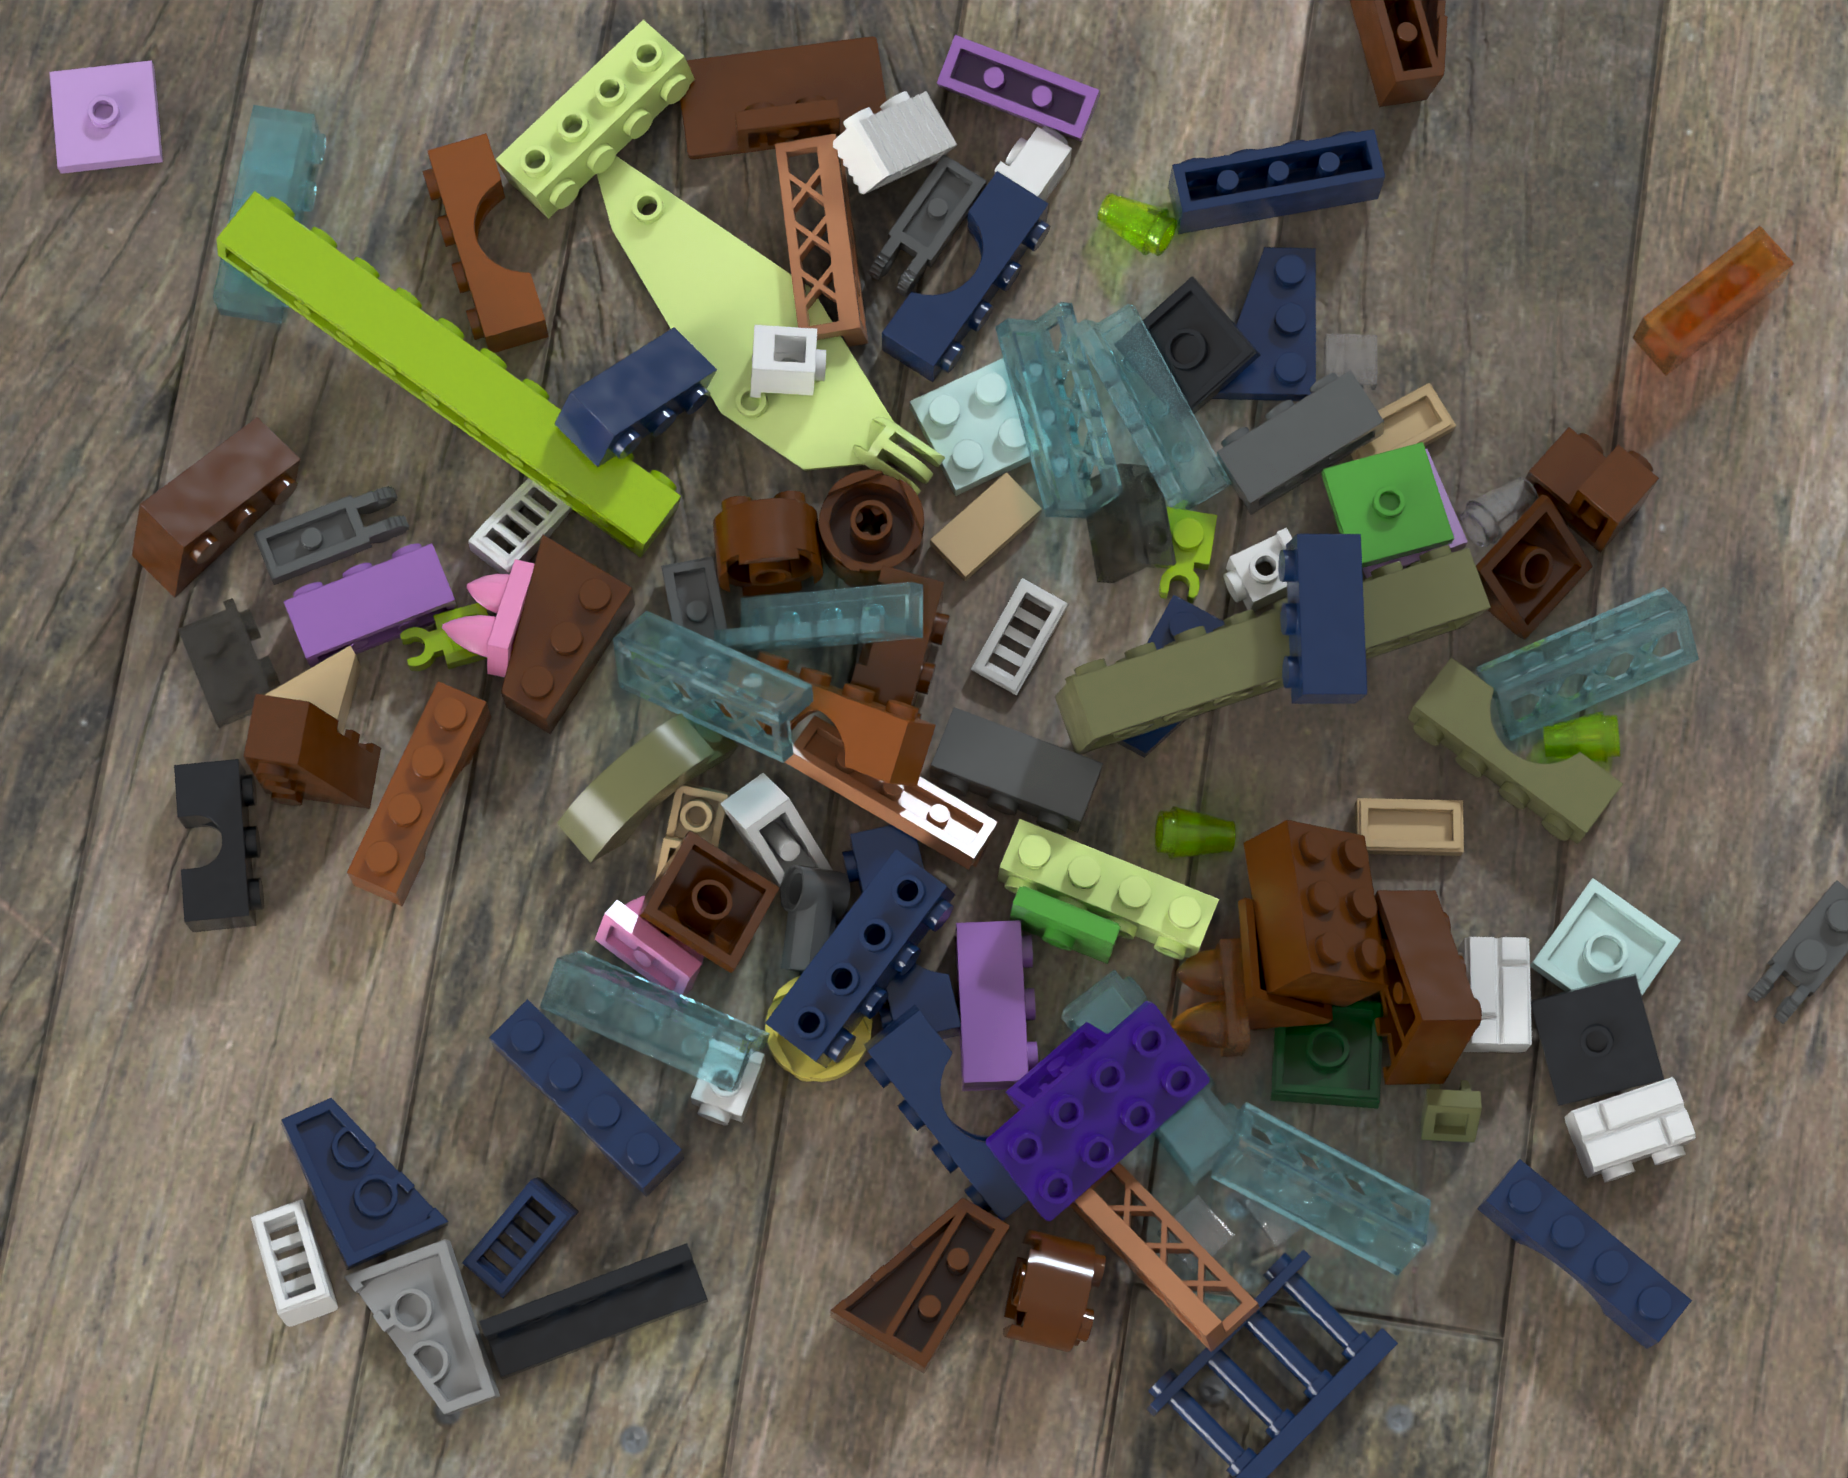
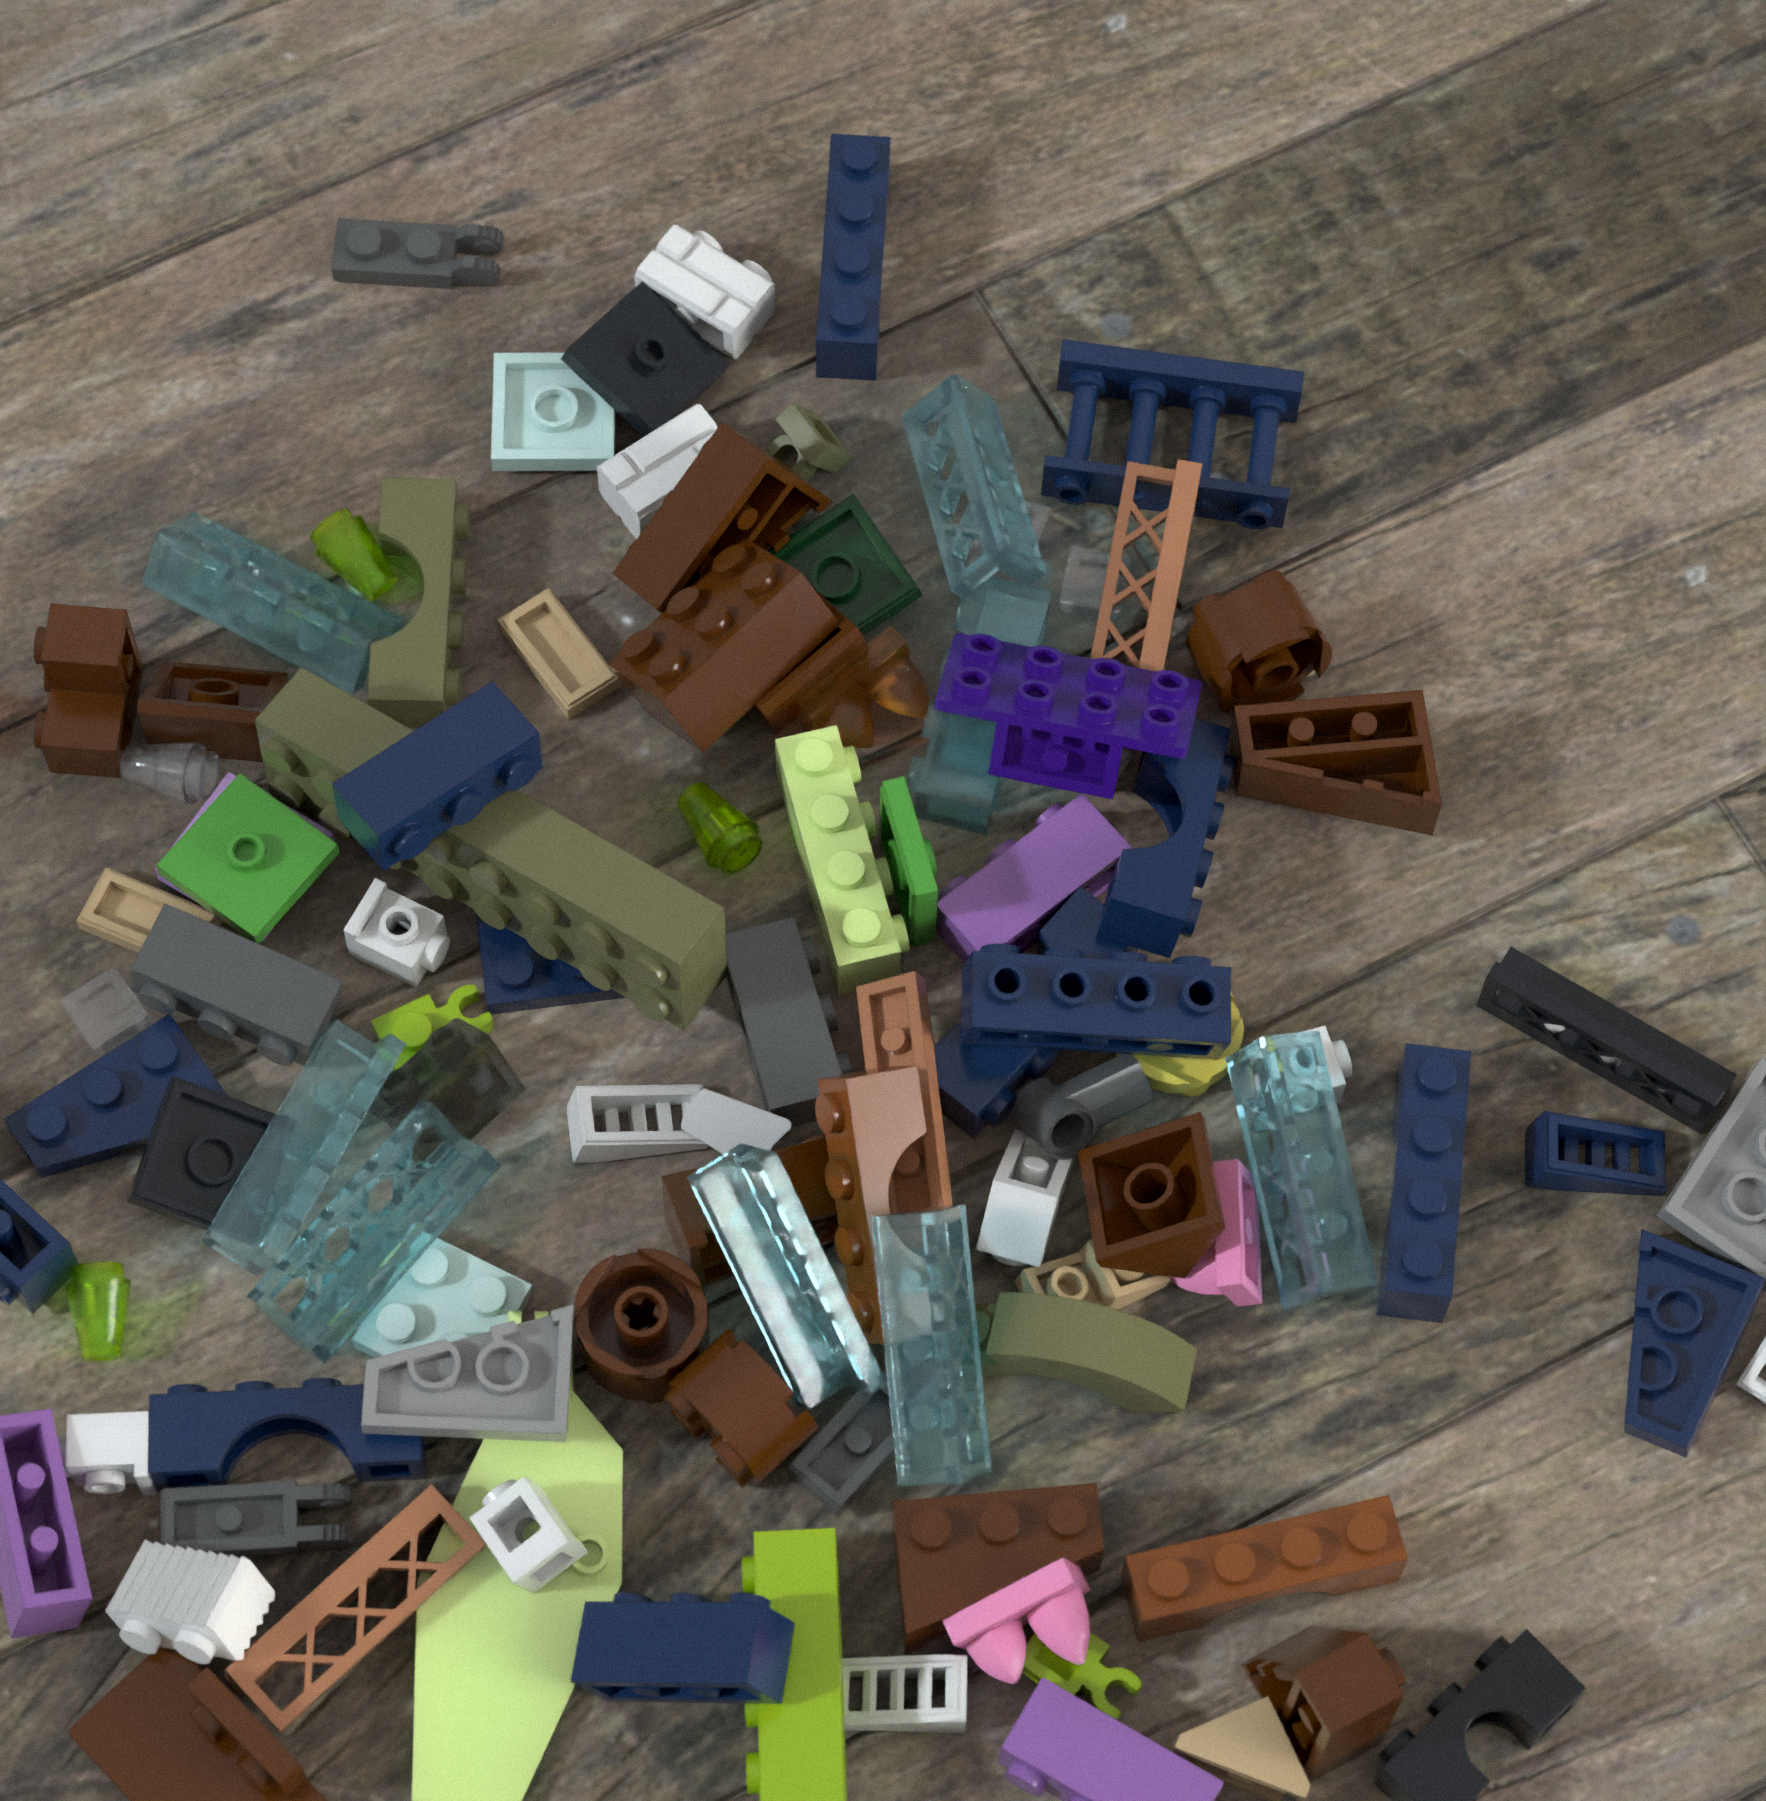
camera: 125 degrees left, 10 degrees down
(898, 391) = (480, 1386): none -> light grey wing
(962, 683) = (728, 1122): none -> white sticker
(985, 526) = (545, 1233): tan tile -> none

